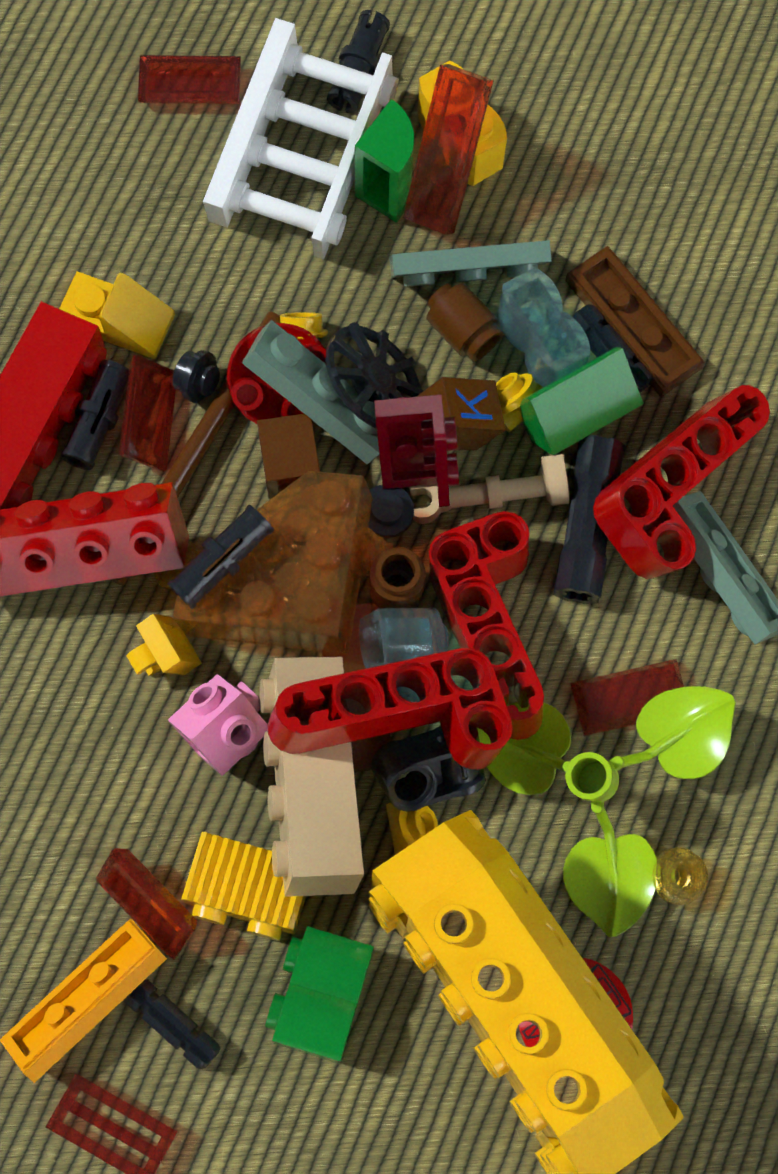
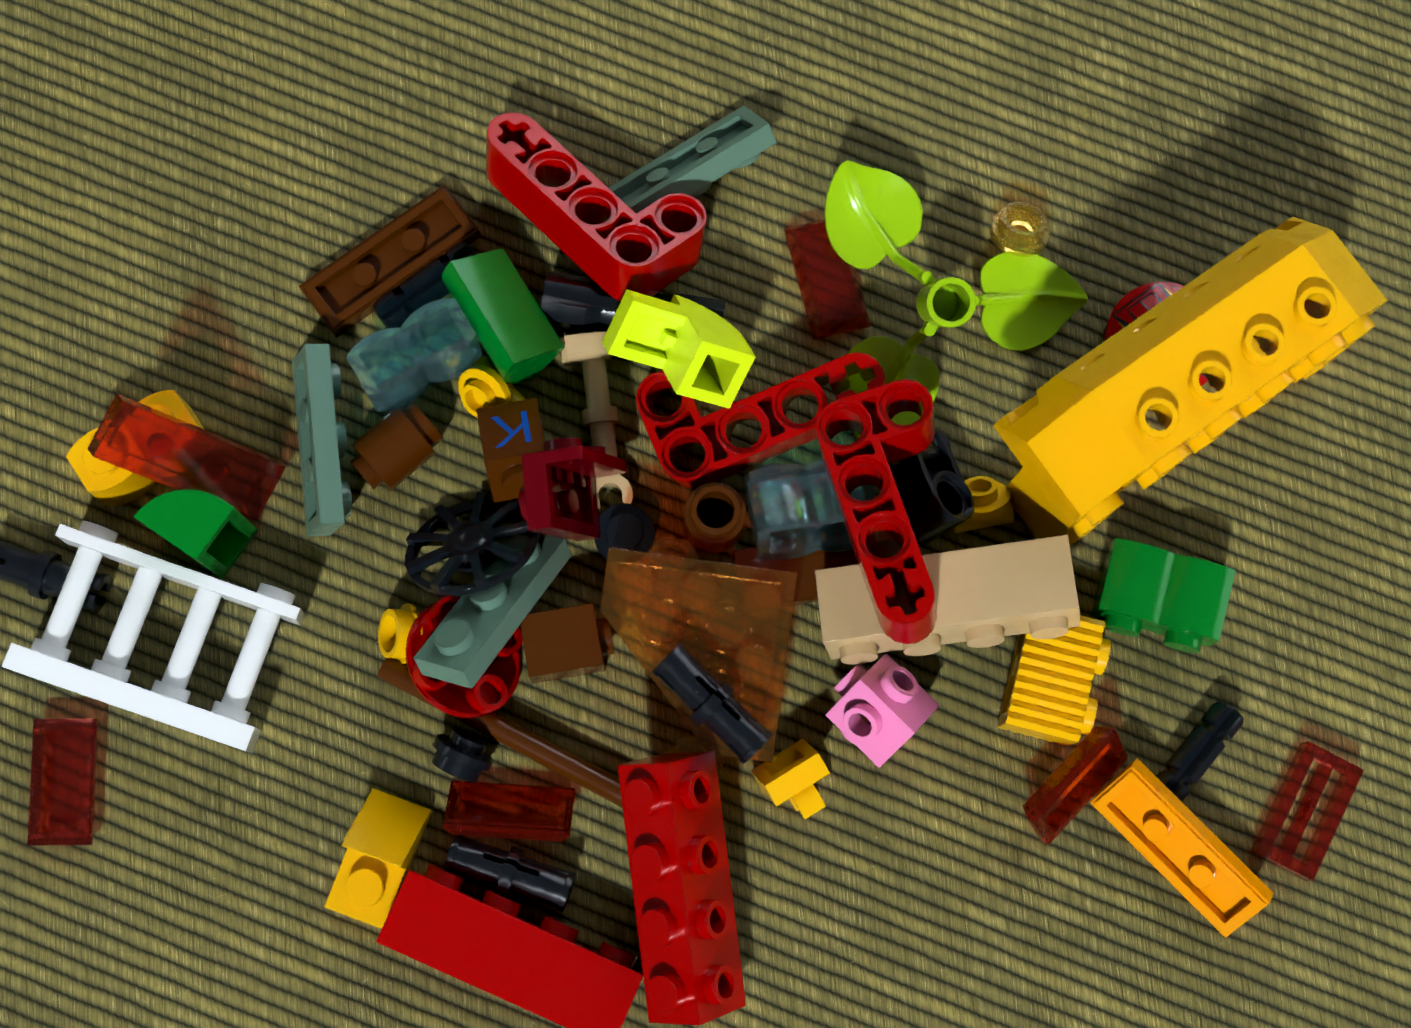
camera: 95 degrees left, 5 degrees up
(556, 551) = (689, 342): none -> neon yellow brick

